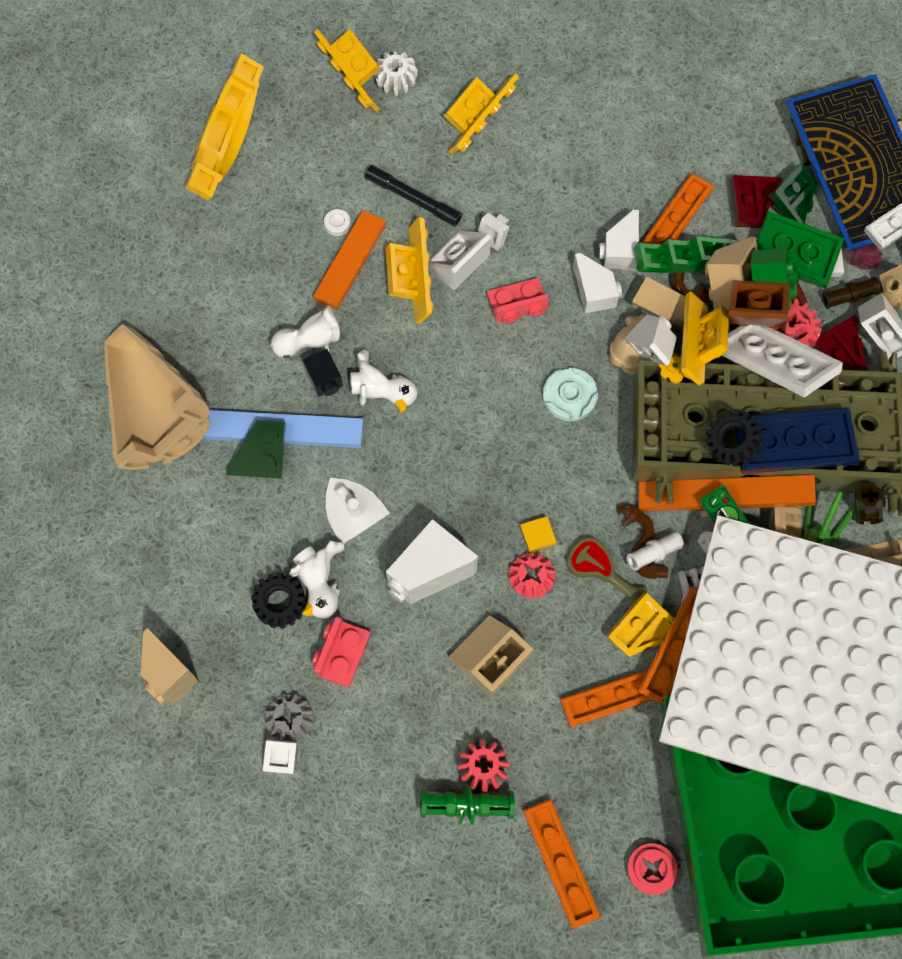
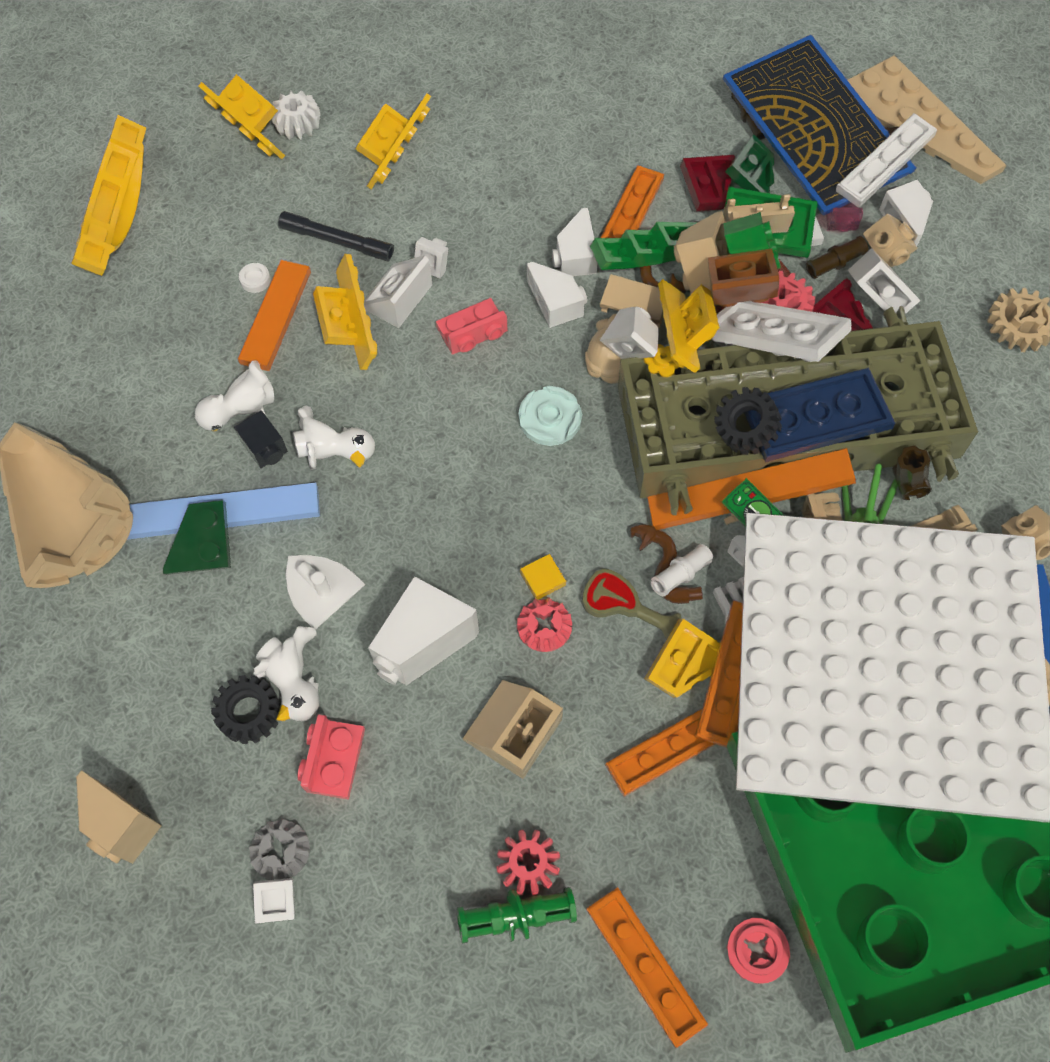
camera: 10 degrees left, 5 degrees down
(799, 247) = (777, 213): none -> tan hinge

